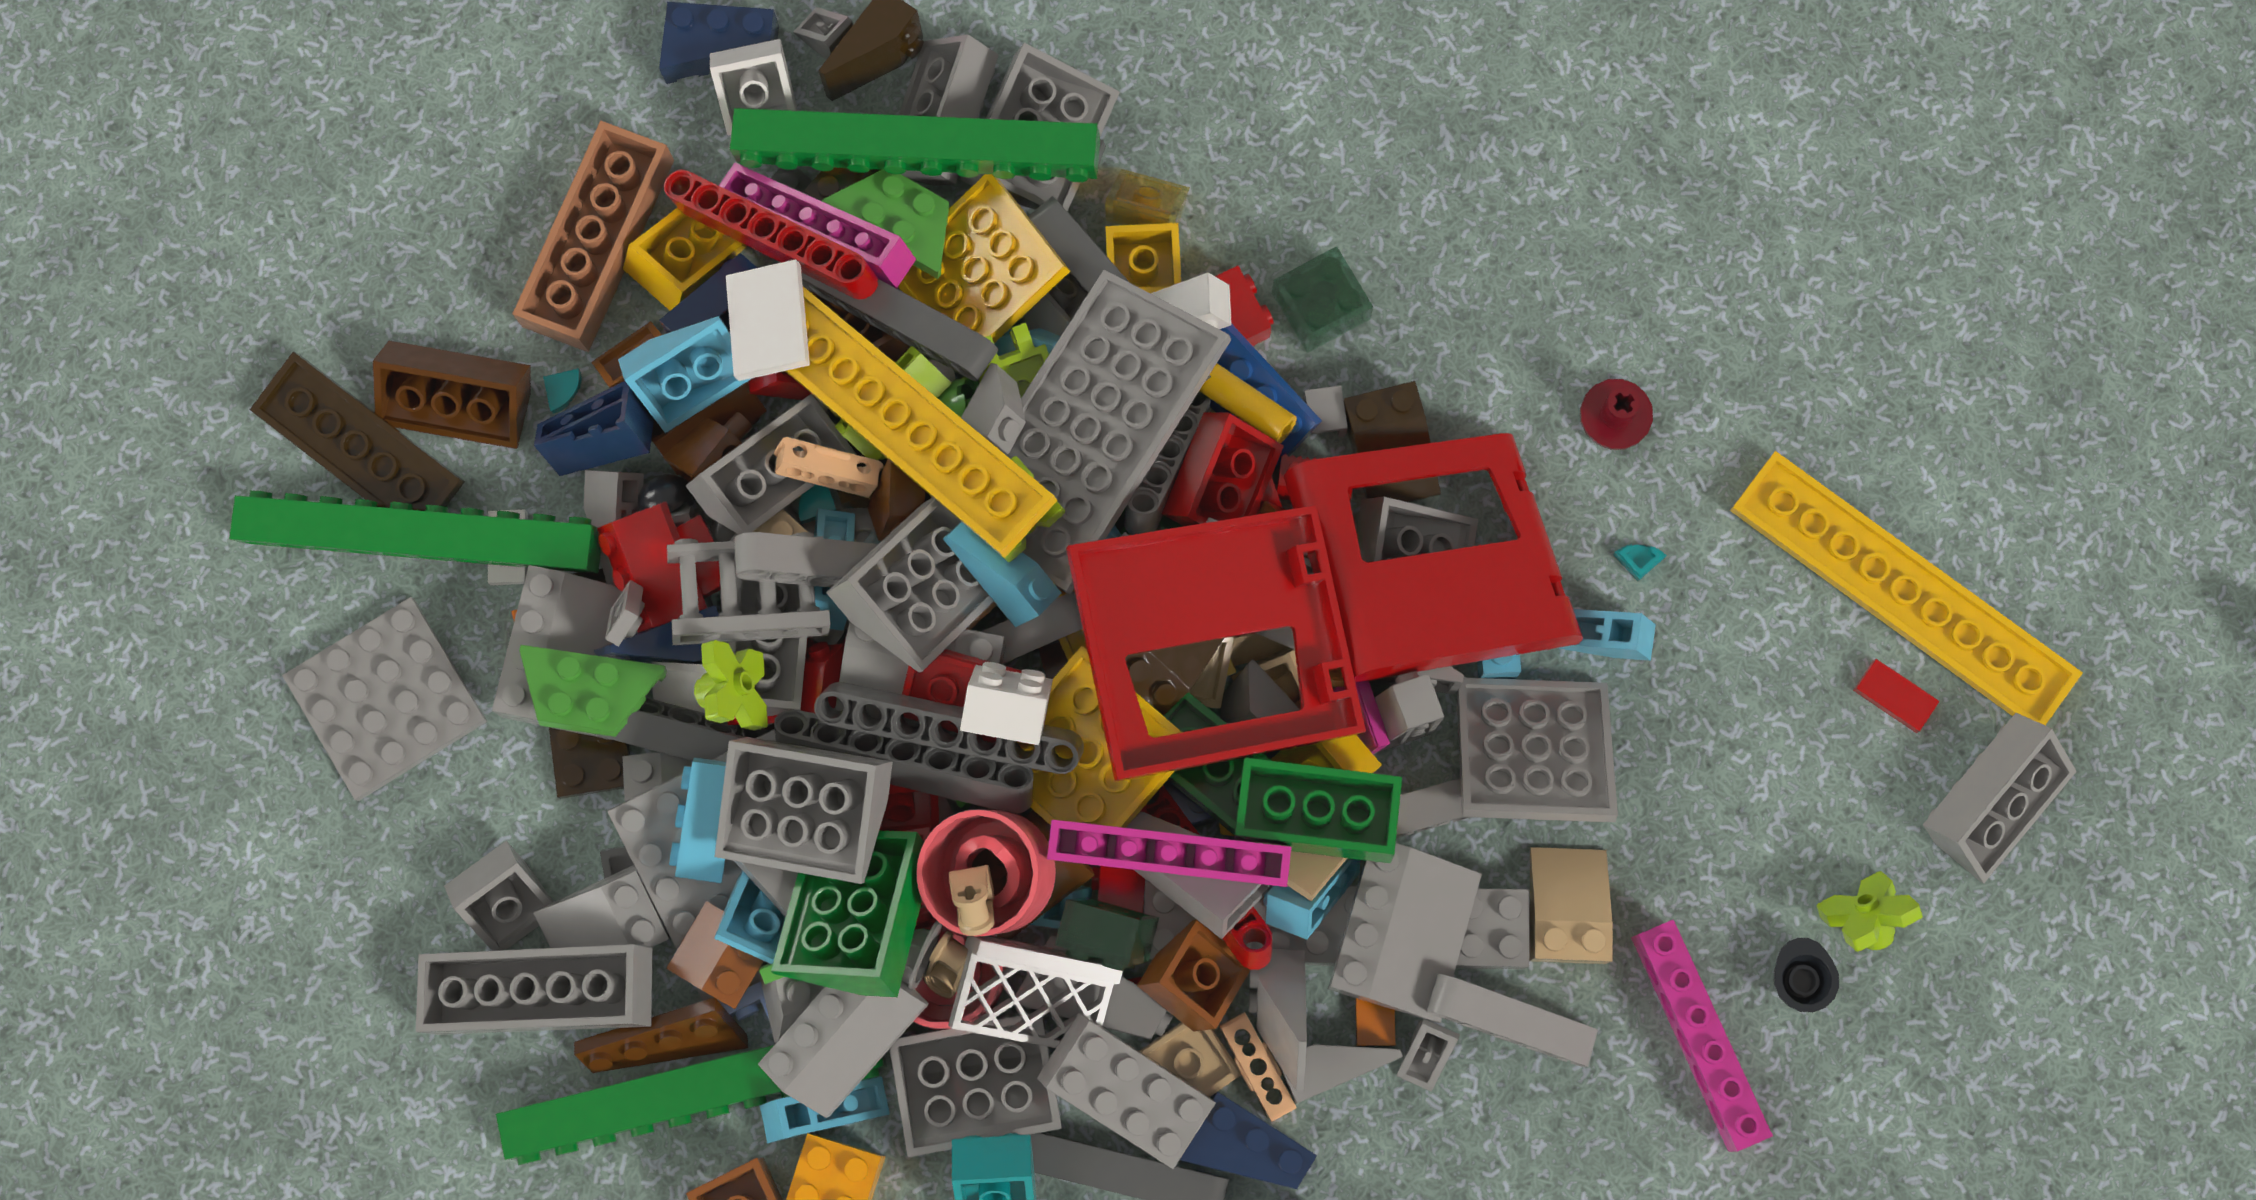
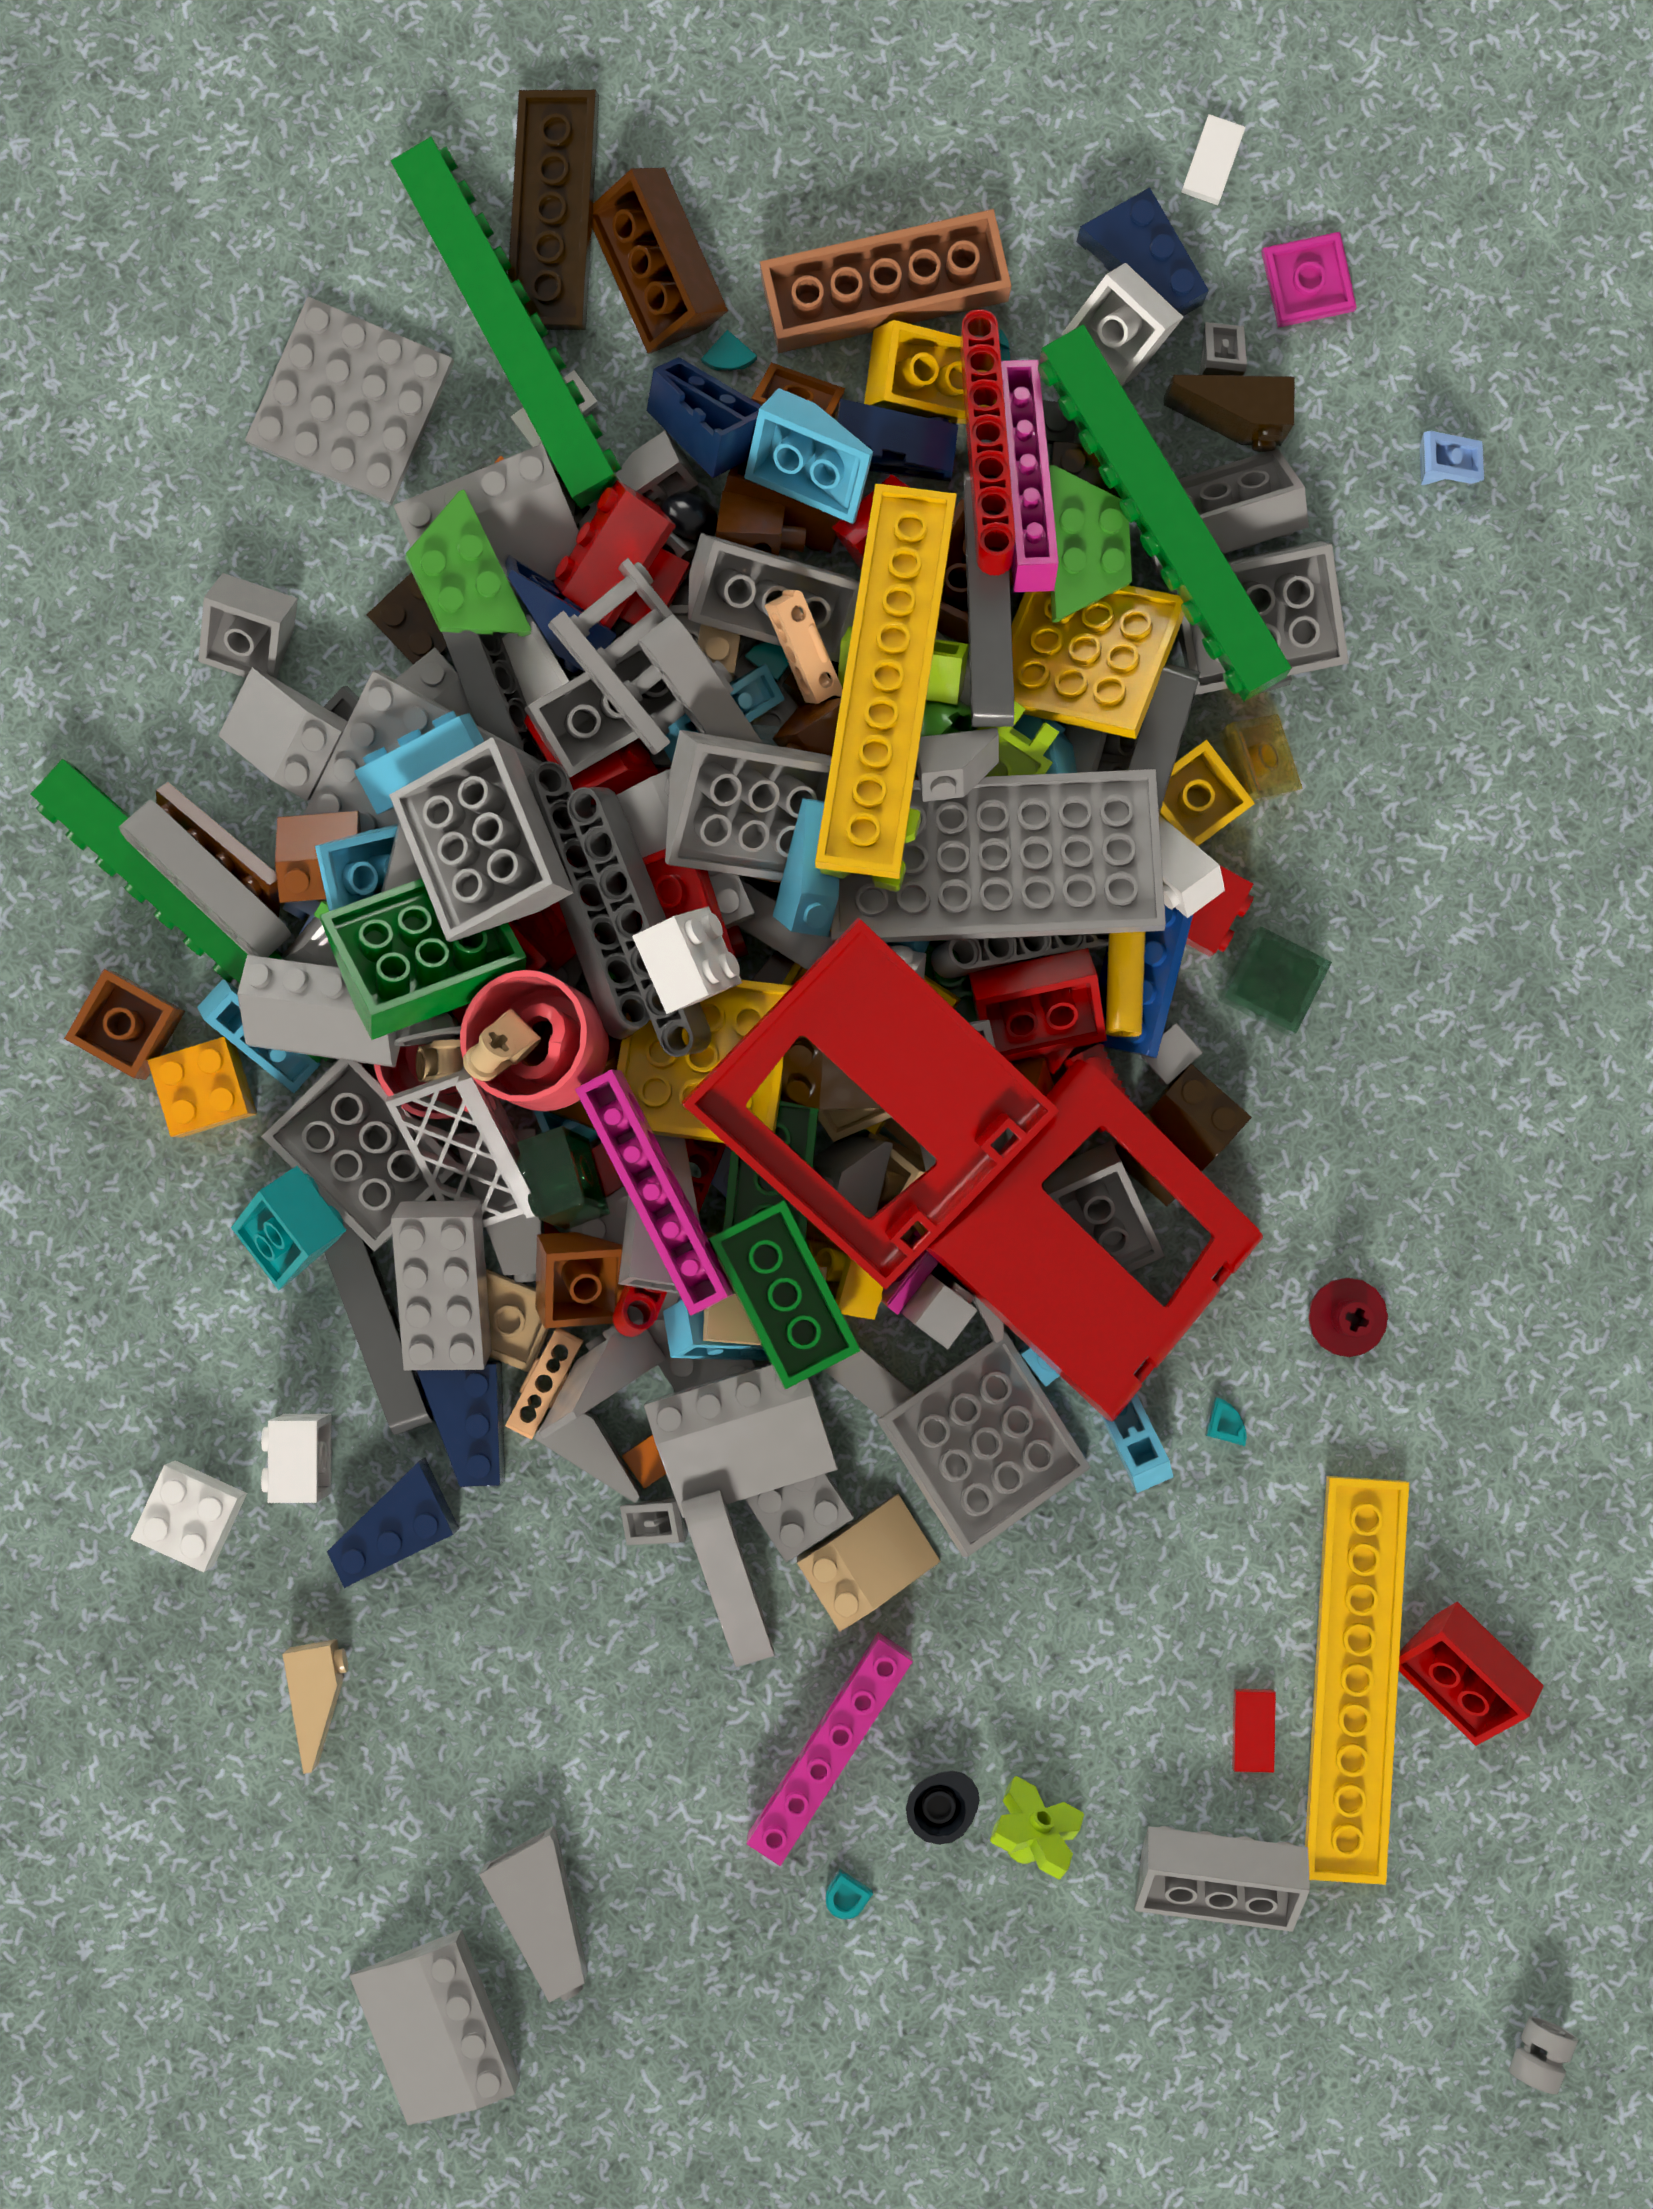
camera: 50 degrees right, 10 degrees up
(534, 990) = (184, 717): light grey brick -> none
(625, 613) = (551, 561): light grey plate -> none
(673, 1062) = (204, 880): none -> light grey beam
(729, 685) = (541, 702): lime plant -> none
(767, 320) = (900, 498): white tile -> none
(1830, 1104) = (846, 1896): none -> teal tile
(1955, 503) = (1469, 1675): none -> red slope

